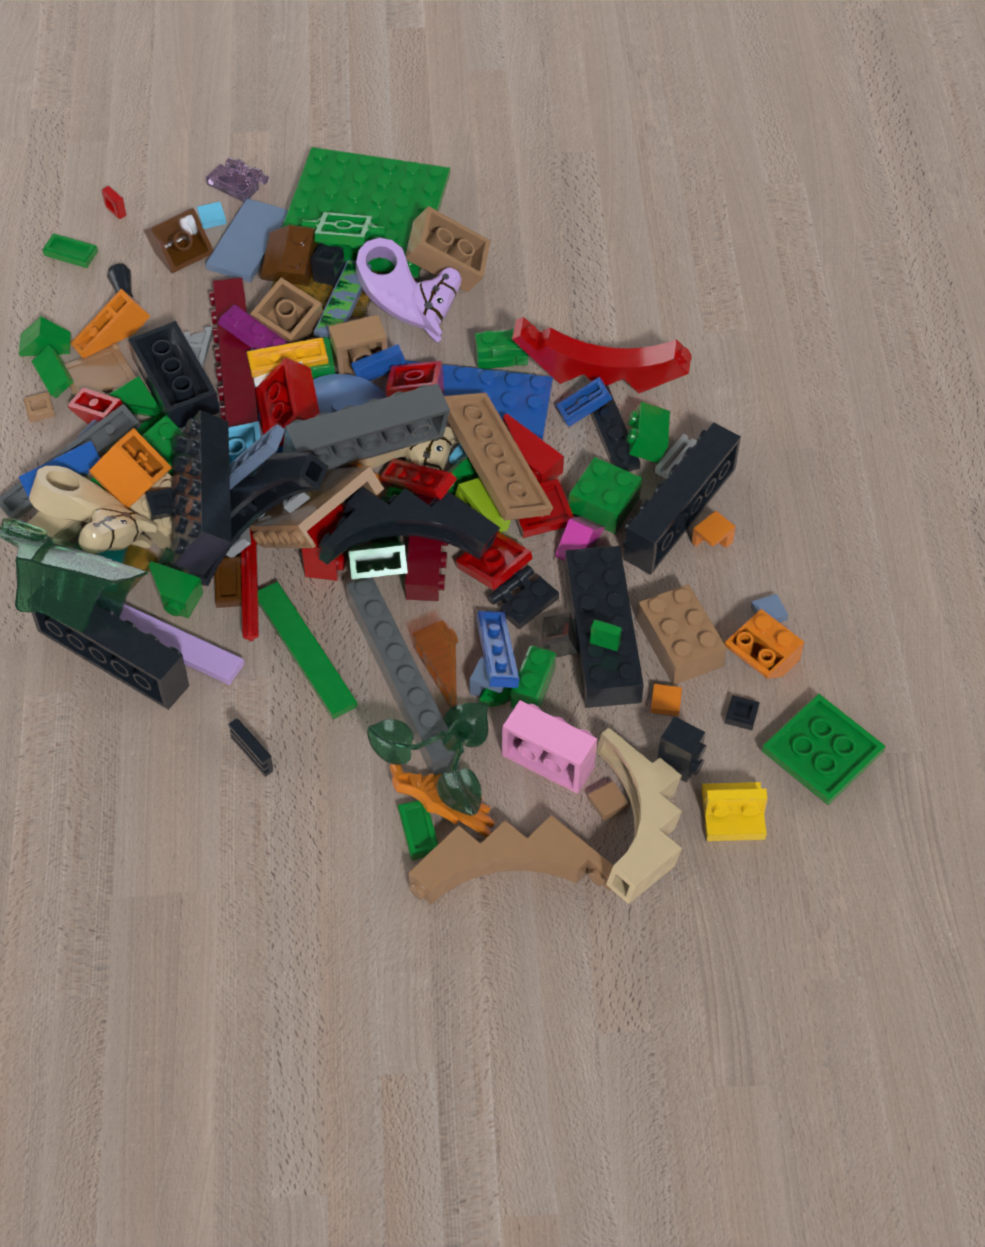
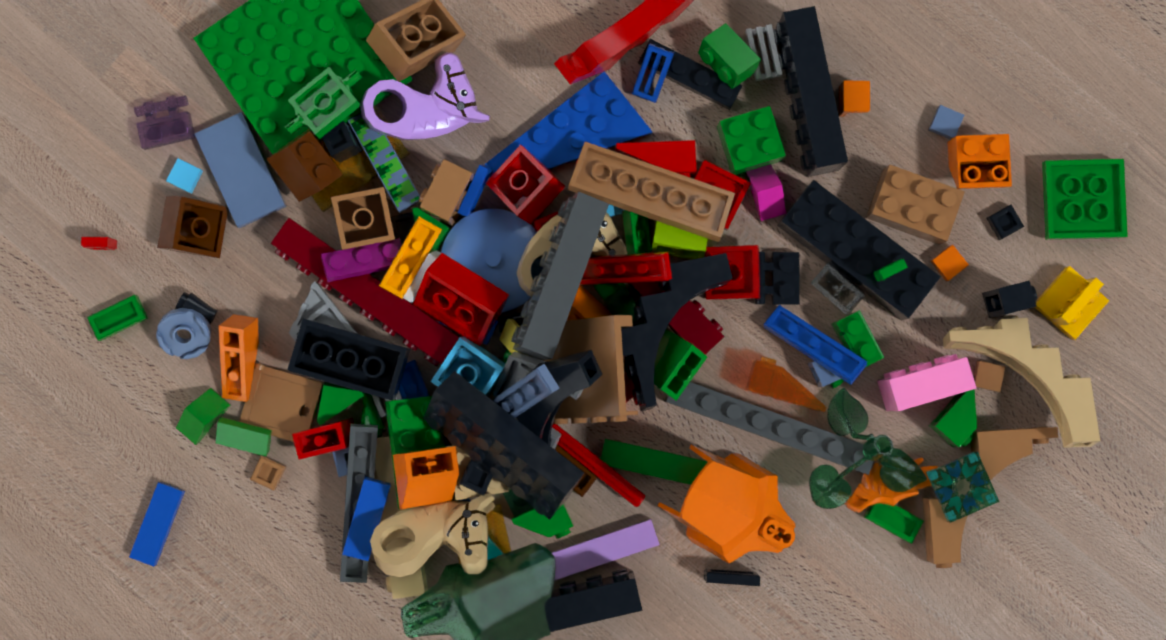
camera: 45 degrees left, 30 degrees up
(83, 282) = (190, 321): none -> sand blue tile
(305, 682) = (734, 508): none -> orange piece
(493, 837) = (962, 487): none -> clear green tile
(498, 350) = (542, 86): green brick -> none
(549, 798) = (957, 420): none -> green slope

